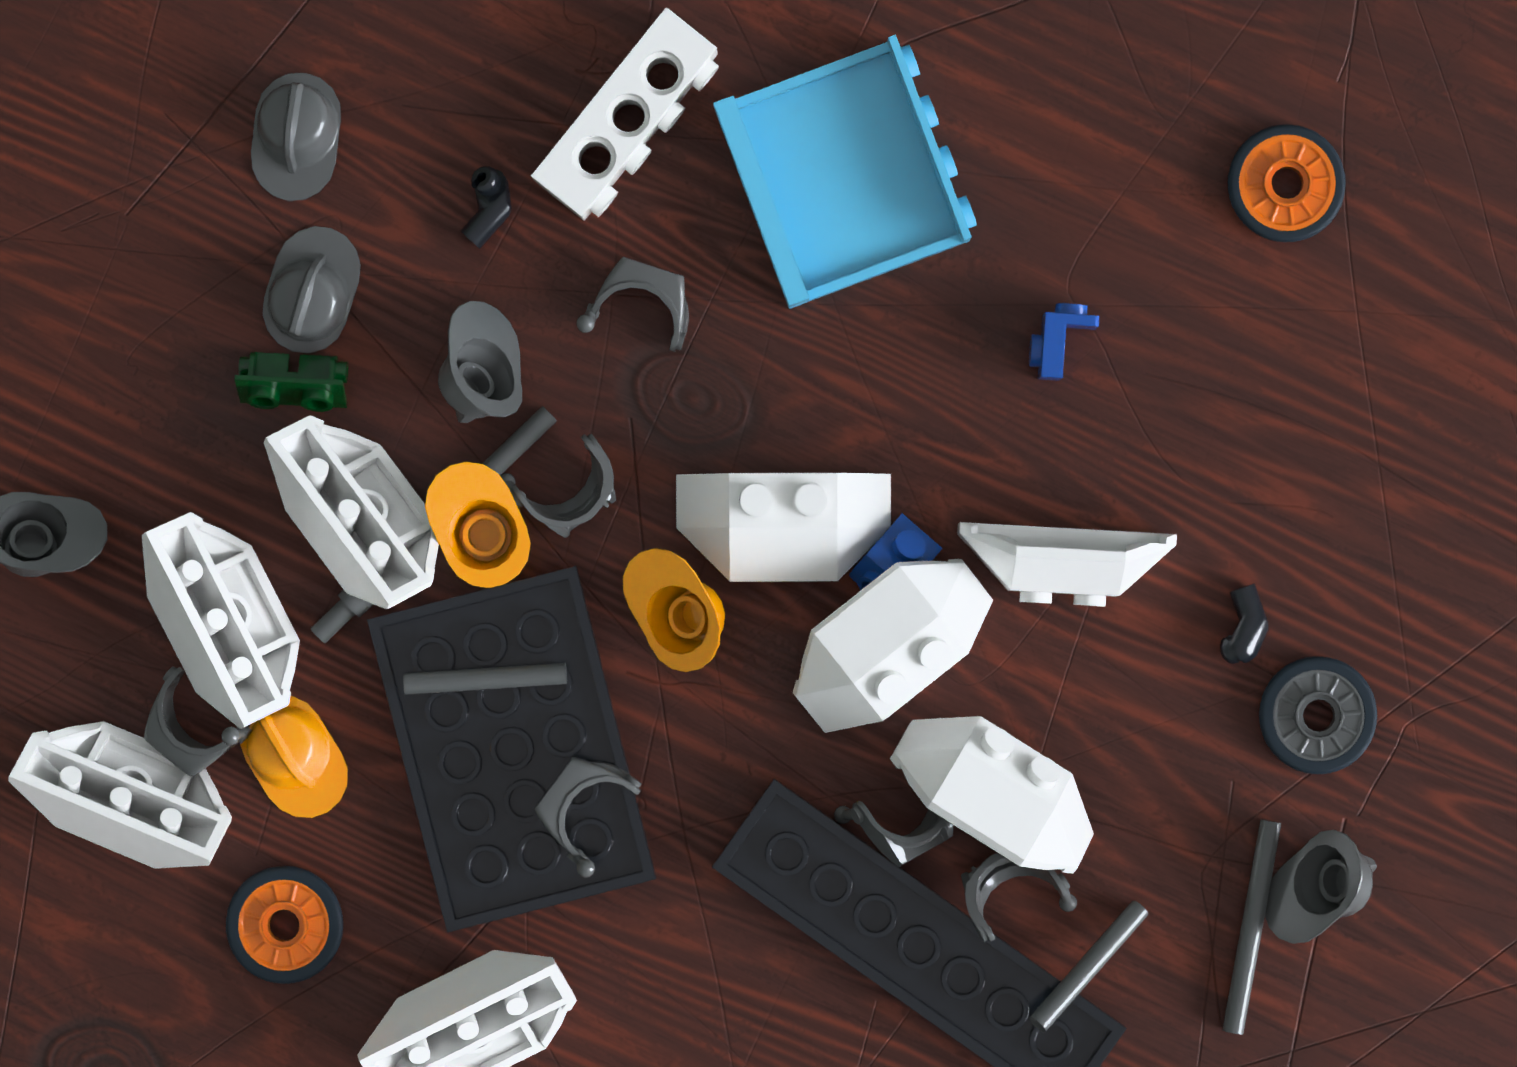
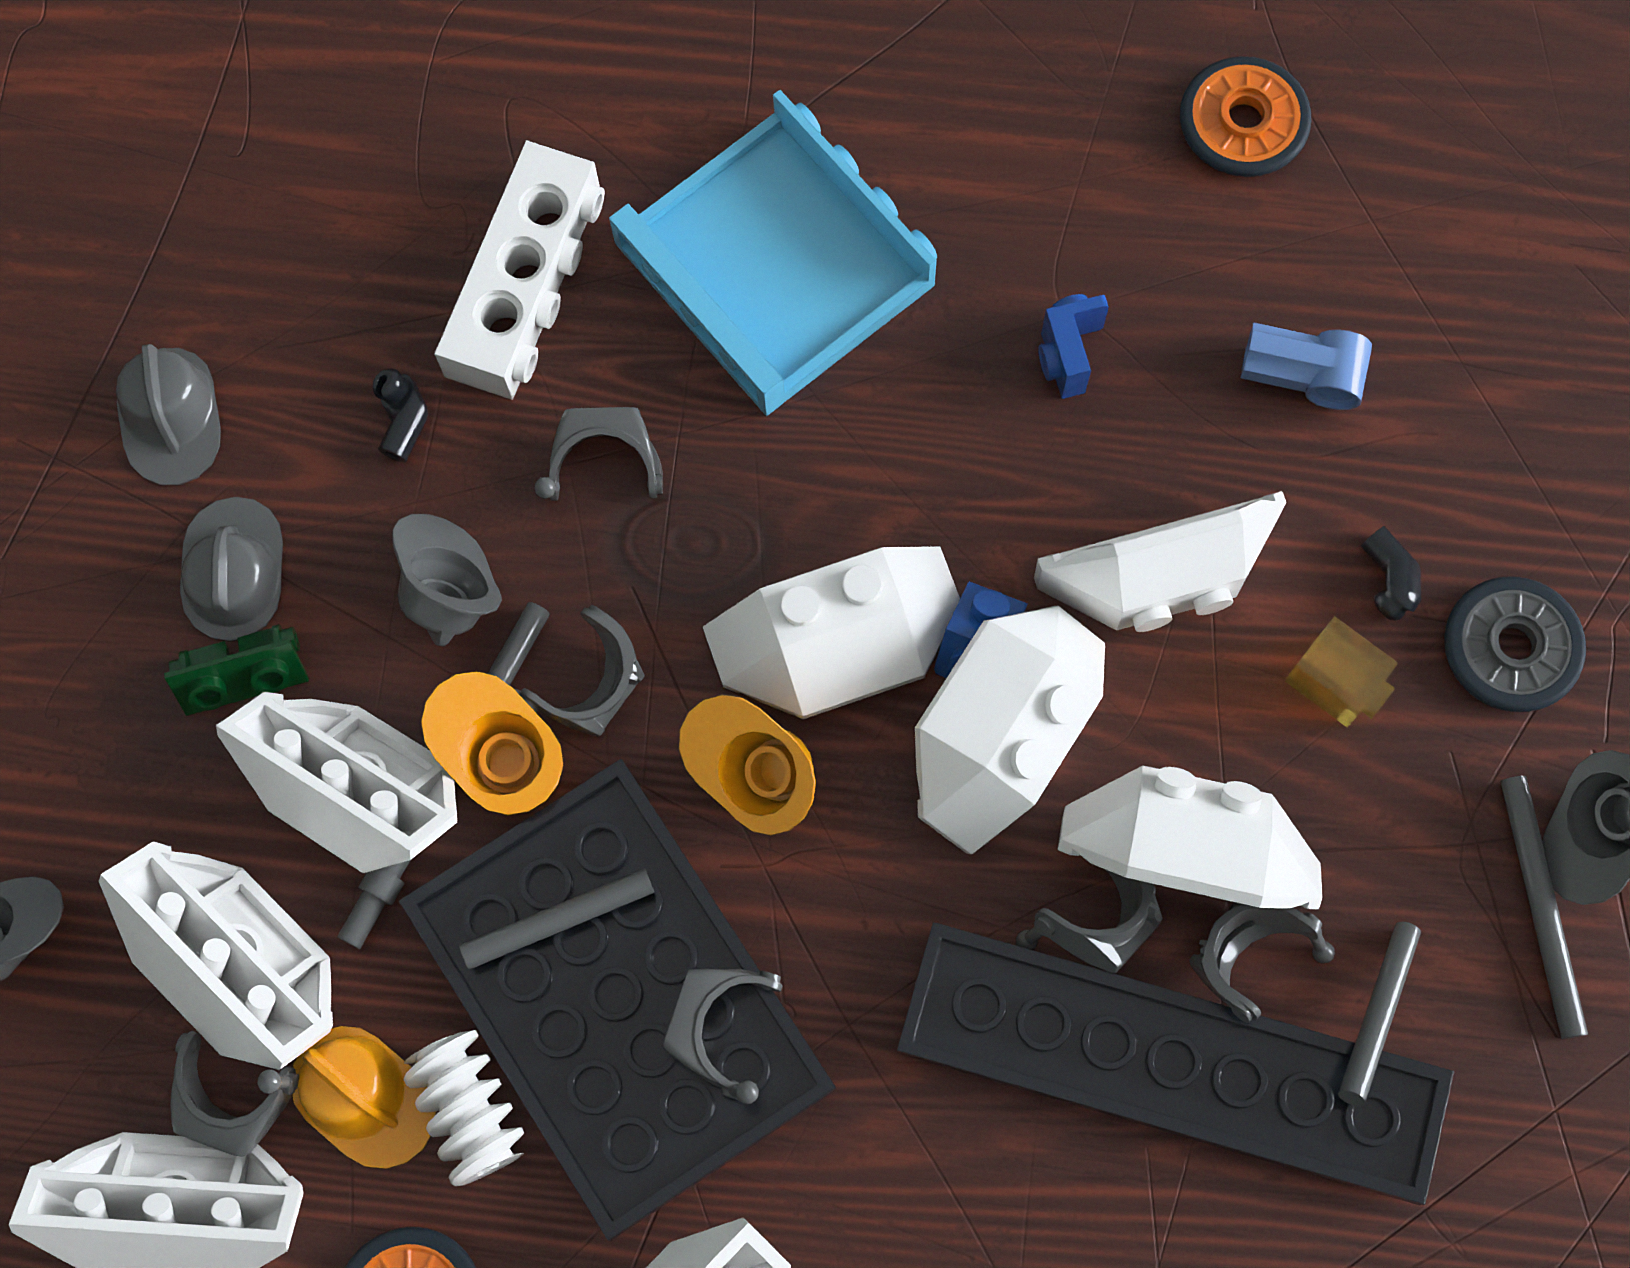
camera: 10 degrees left, 15 degrees down
(370, 795) = (462, 1107): none -> white piece
(1169, 695) = (1343, 674): none -> clear yellow brick
(1258, 432) = (1324, 366): none -> medium blue piece

